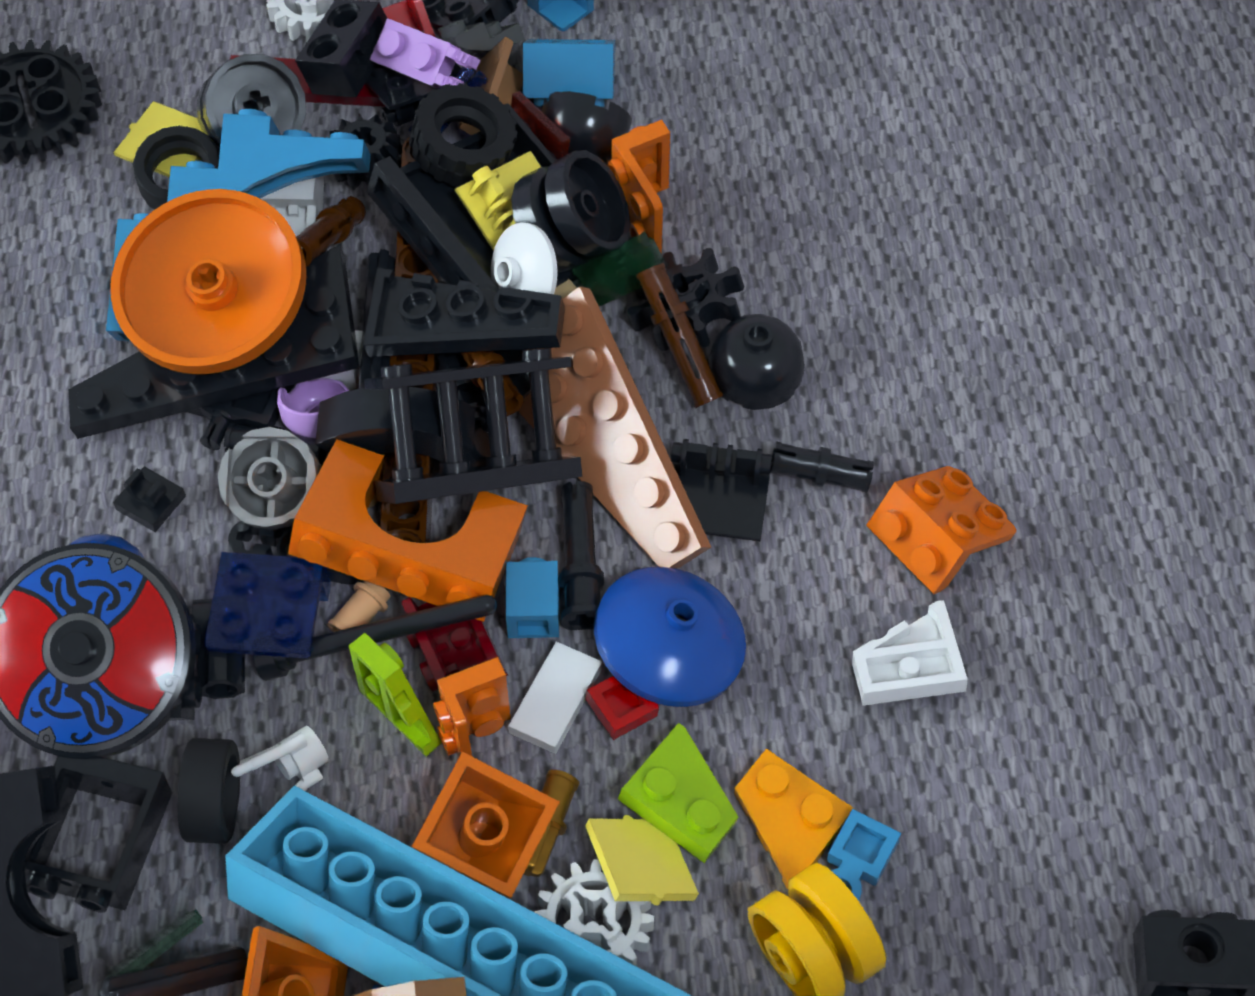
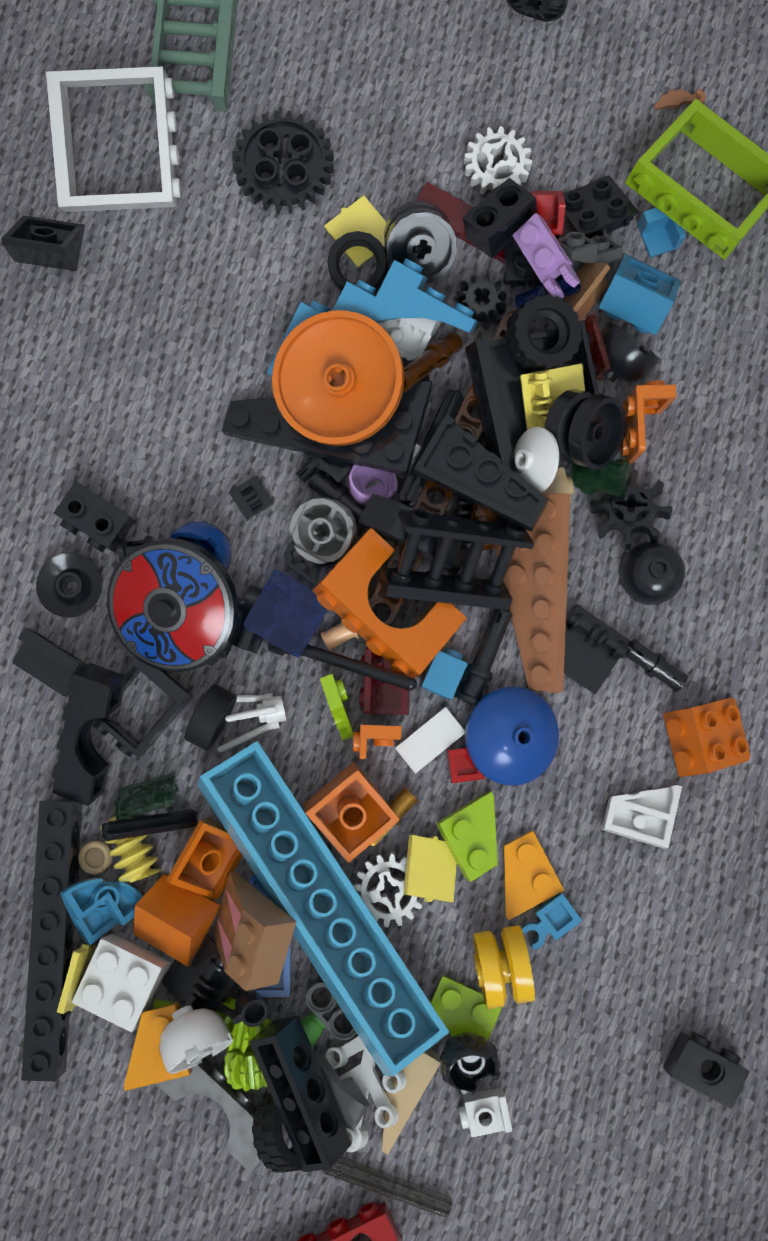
camera: 20 degrees right, 25 degrees up
(656, 281) = (612, 505): reddish brown pin -> none

